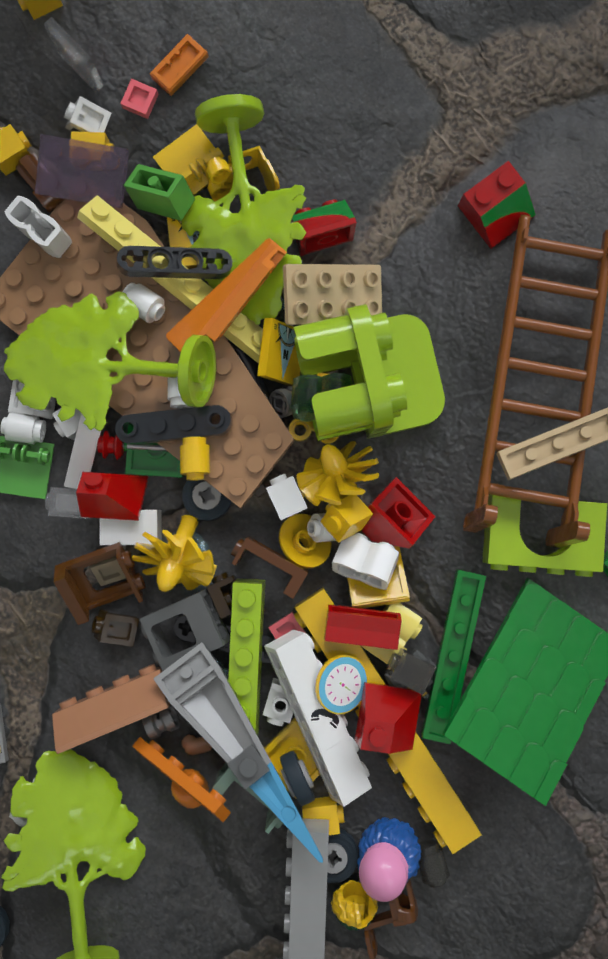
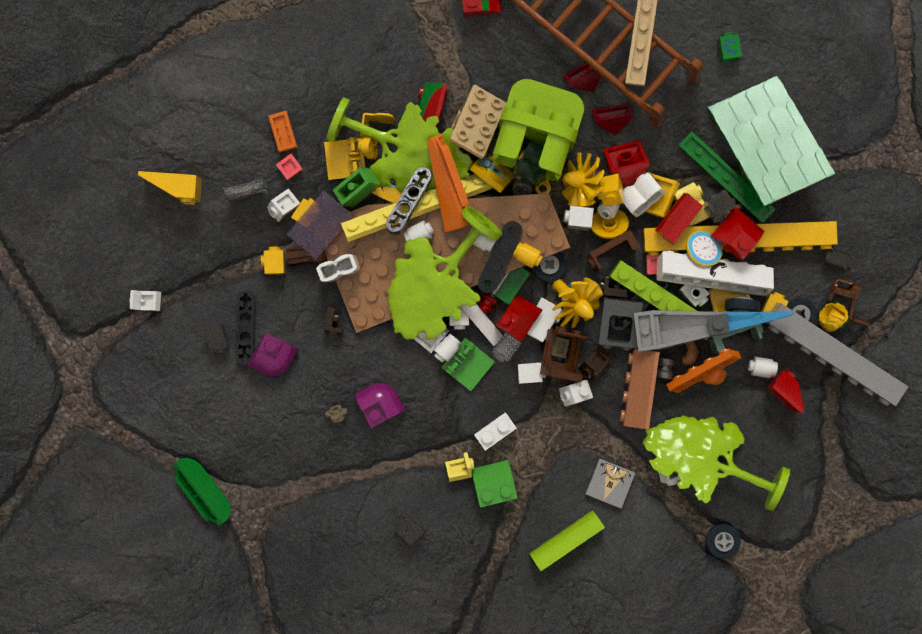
camera: 55 degrees left, 0 degrees up
(53, 550) = (529, 373): none -> white brick
(62, 627) = (575, 393): none -> white bracket
(224, 900) = (787, 390): none -> red slope
(236, 848) = (763, 367): none -> white brick
(387, 858) = (817, 281): hair -> none
(443, 466) = (613, 117): none -> dark red slope
(471, 398) = (583, 77): none -> dark red slope
(505, 546) = (682, 109): lime arch -> none

